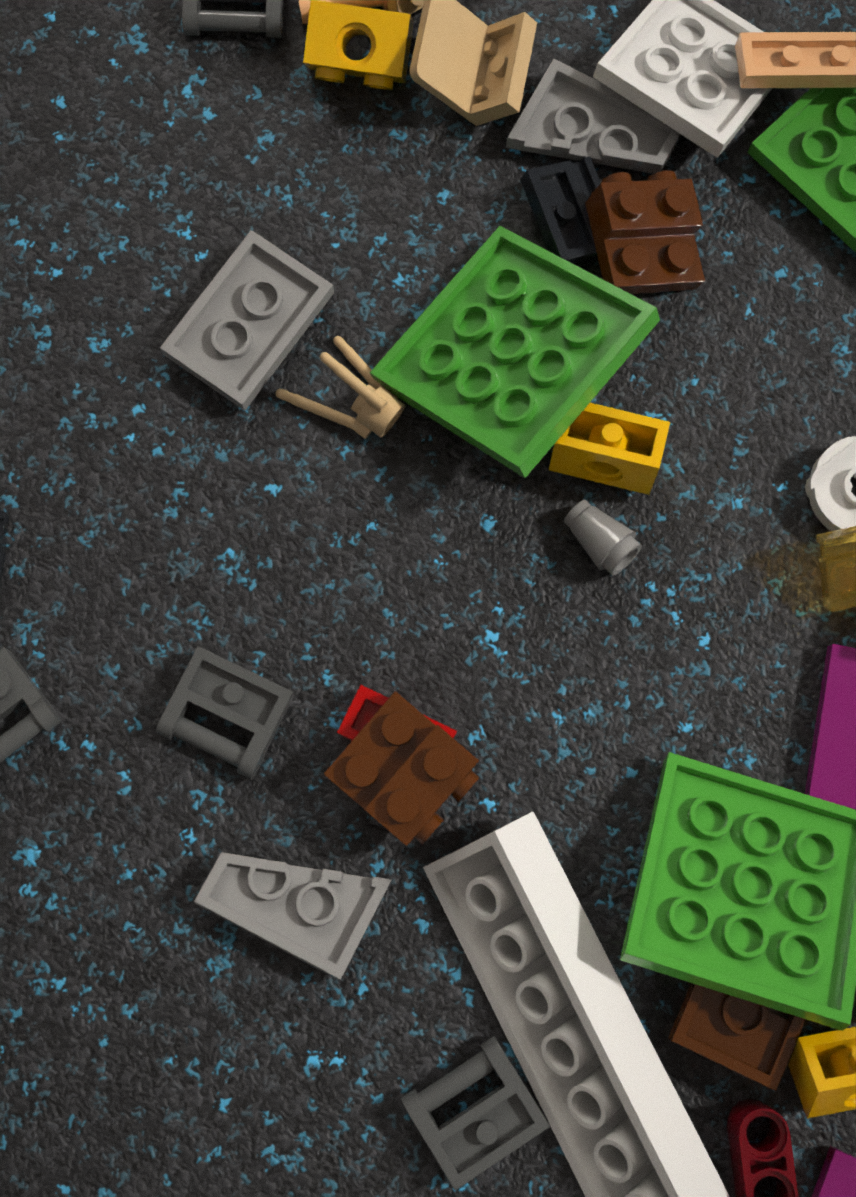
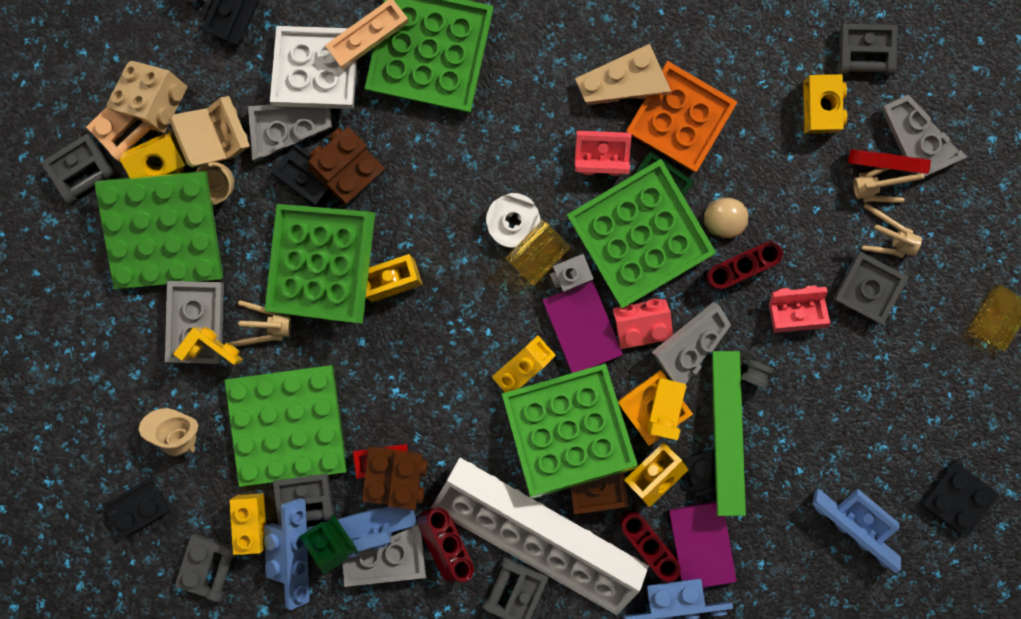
camera: 30 degrees left, 10 degrees up
(91, 460) = (170, 431): none -> tan piece
(109, 689) = (247, 523): none -> yellow brick
(139, 782) = (287, 554): none -> medium blue bracket
(221, 806) = (328, 544): none -> dark green plate
(223, 343) = (192, 346): none -> yellow bracket
(279, 573) = (286, 425): none -> bright green plate
(286, 824) = (375, 526): none -> medium blue bracket
(295, 145) = (159, 229): none -> bright green plate
(423, 970) = (456, 550): none -> dark red beam
(425, 132) = (220, 181): none -> tan hair
(602, 537) = (415, 318): light grey cone -> none
(733, 730) = (524, 365): none -> yellow bracket

